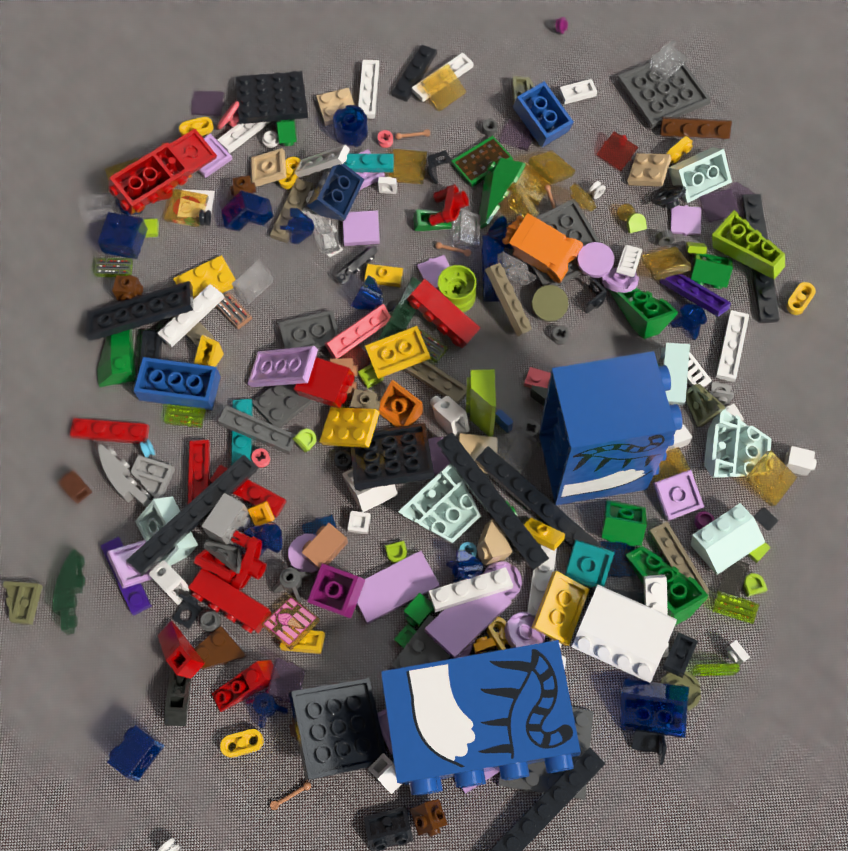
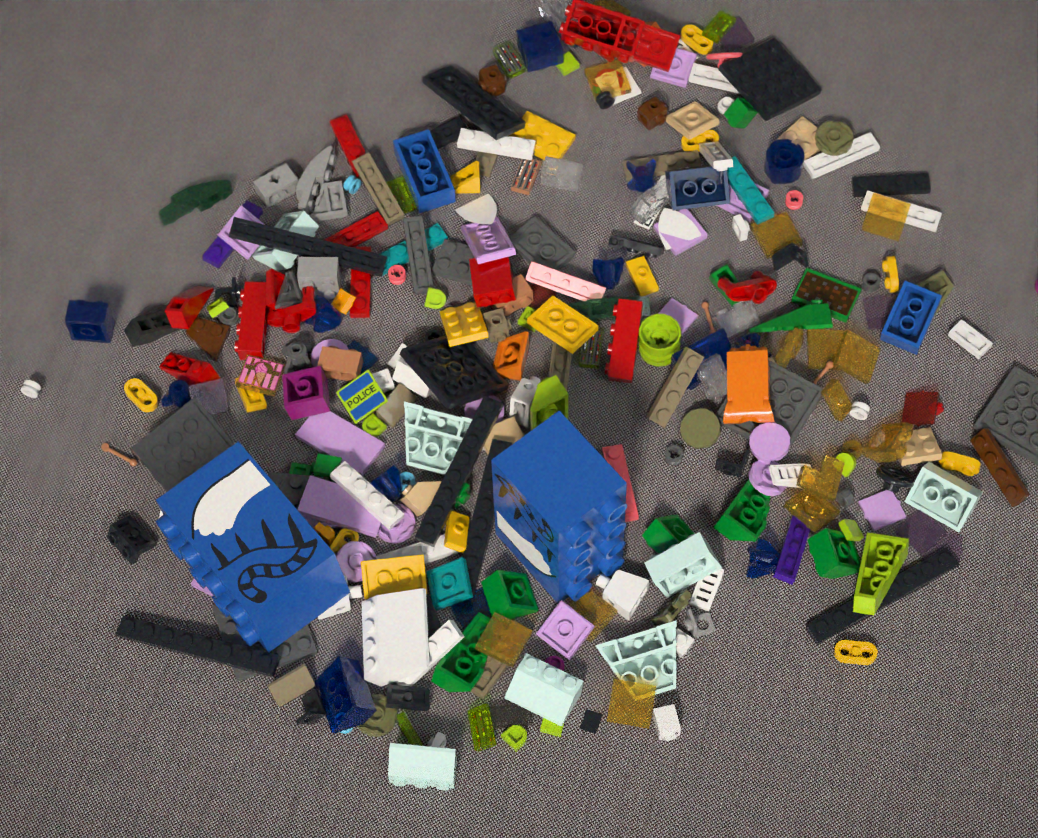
camera: 60 degrees right, 5 degrees down
(22, 601) = (167, 173): olive wing -> none
(75, 486) = (285, 151): copper brick -> none
(109, 519) = (276, 185): none -> light grey brick
(117, 360) = (422, 114): green wedge -> none
(169, 428) = (378, 189): none -> dark tan plate
(169, 581) = (243, 264): white torso -> none
(195, 626) = (217, 307): none -> lime tile
(197, 106) = (719, 26): none -> clear neon green tile
(243, 361) = (479, 211): none -> white sticker
(246, 208) = (632, 126): clear blue brick -> none
(343, 496) = (393, 361): none -> white plate
(353, 83) = (834, 138): none -> olive tile
(355, 227) = (676, 225): none -> white sticker
(367, 545) = (362, 396): none -> piece
(389, 522) = (394, 409): none -> dark tan slope
(426, 133) = (827, 231): nougat hinge -> none
(429, 818) = (154, 562): reddish brown brick -> none
(492, 109) = (891, 280): none -> yellow plate
(618, 751) = (291, 685): none -> dark tan slope
(638, 182) = (889, 442): none -> clear yellow slope
(648, 241) = (822, 482): none -> clear yellow plate
(670, 546) = (503, 639): none -> clear yellow plate
(732, 346) = (758, 611): white plate -> none
(755, 675) = (422, 766): none -> light aqua slope

